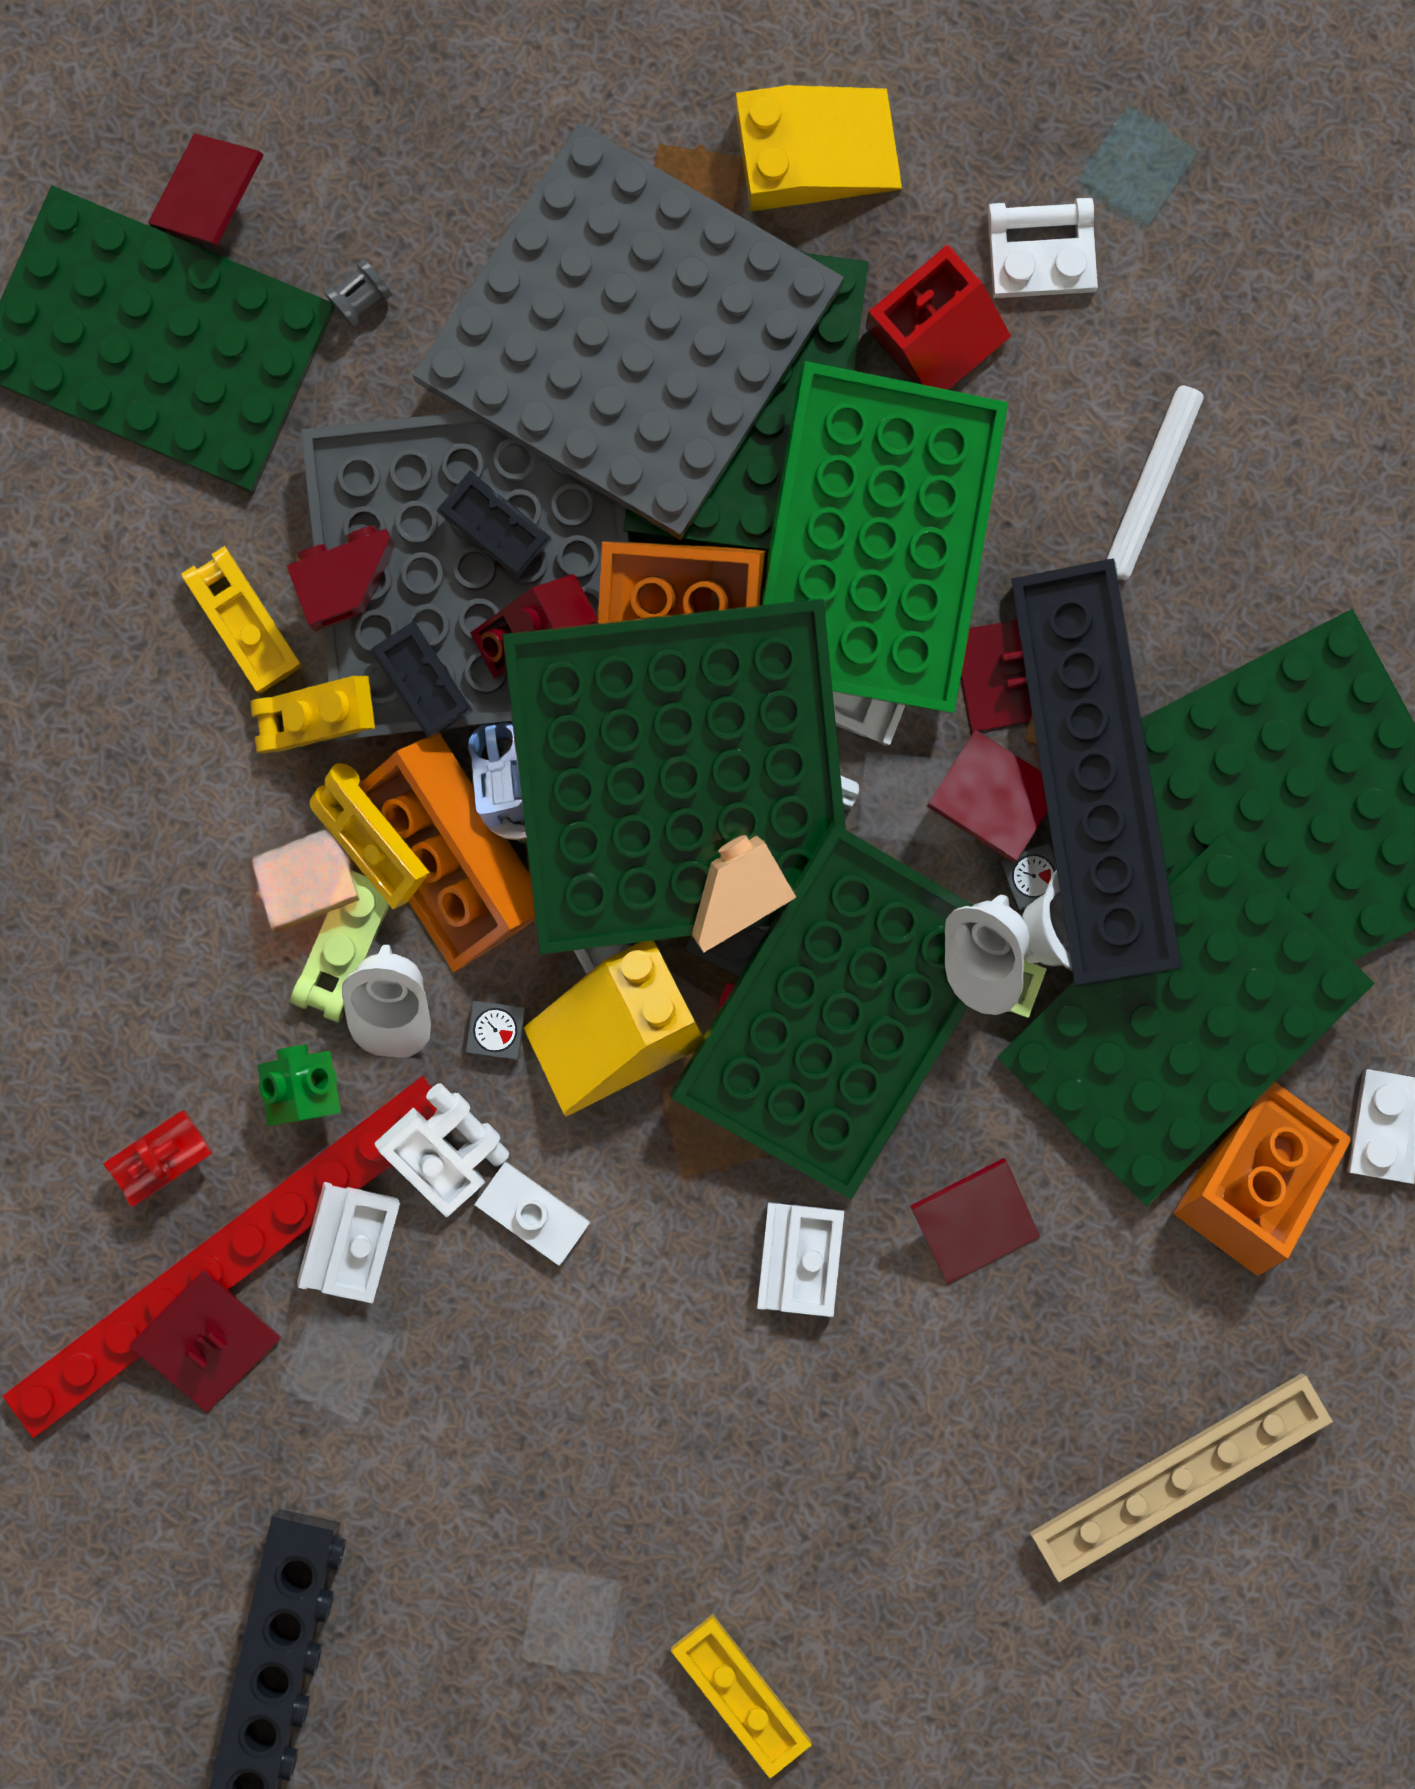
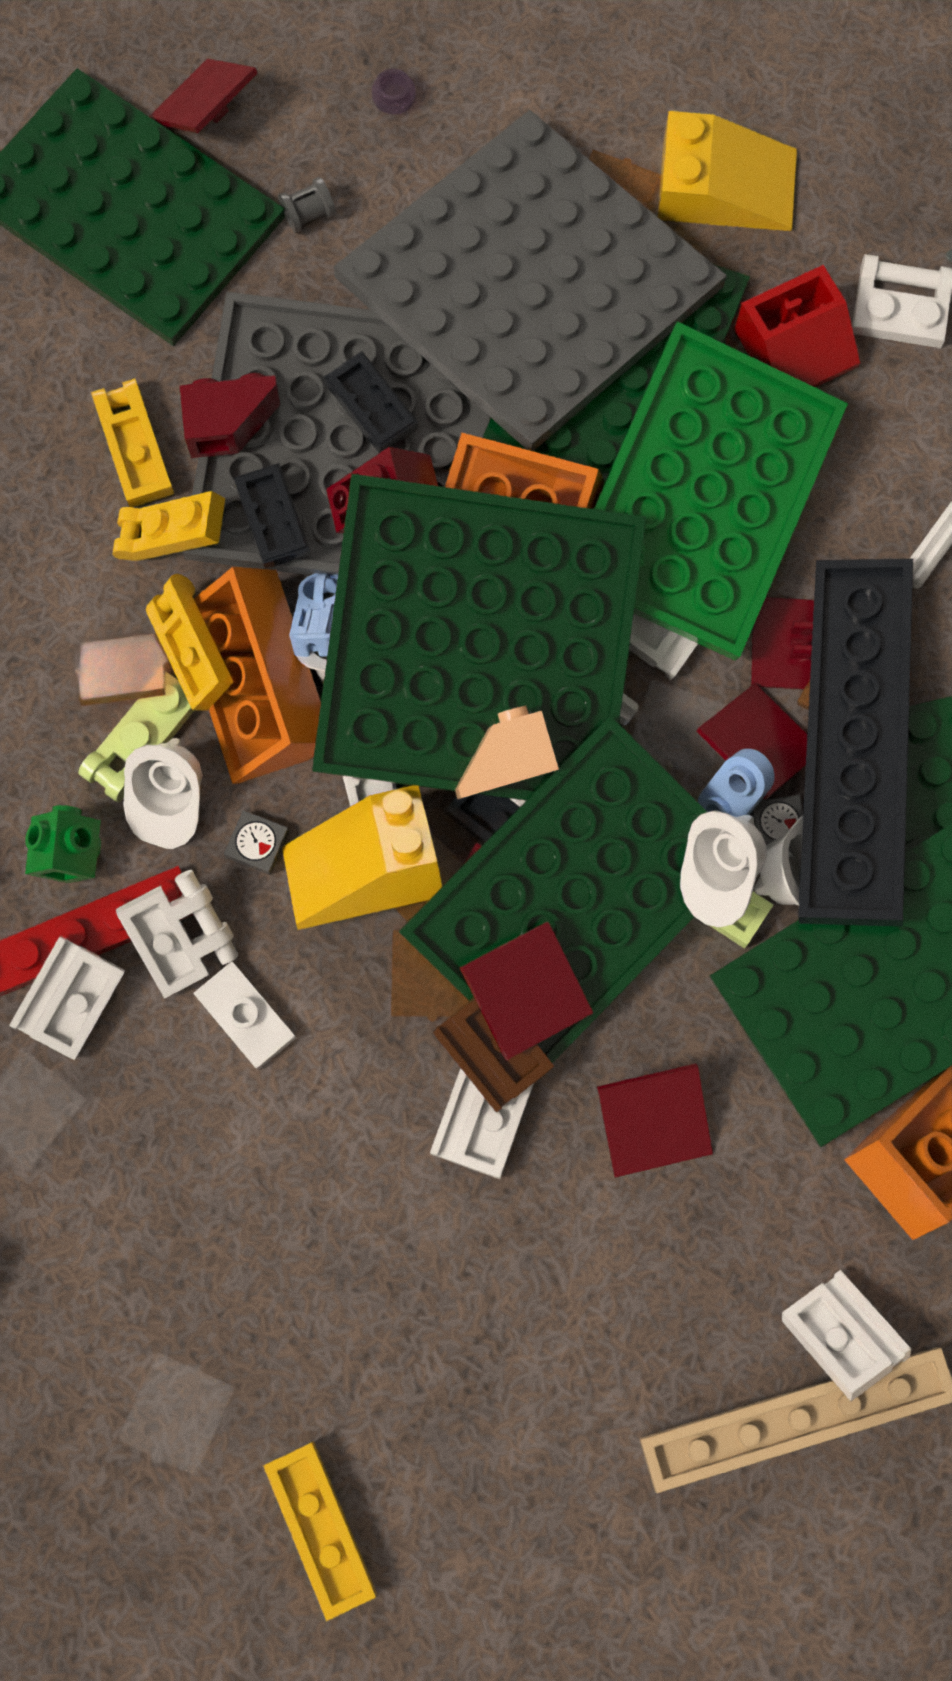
camera: 10 degrees right, 10 degrees down
(417, 128) = (393, 91): none -> plate
(796, 1192) = (478, 1055): none -> reddish brown plate
(816, 1128) = (526, 990): none -> dark red piece
(981, 860) = (734, 794): none -> light blue plate
(1210, 1387) = (846, 1335): none -> white plate

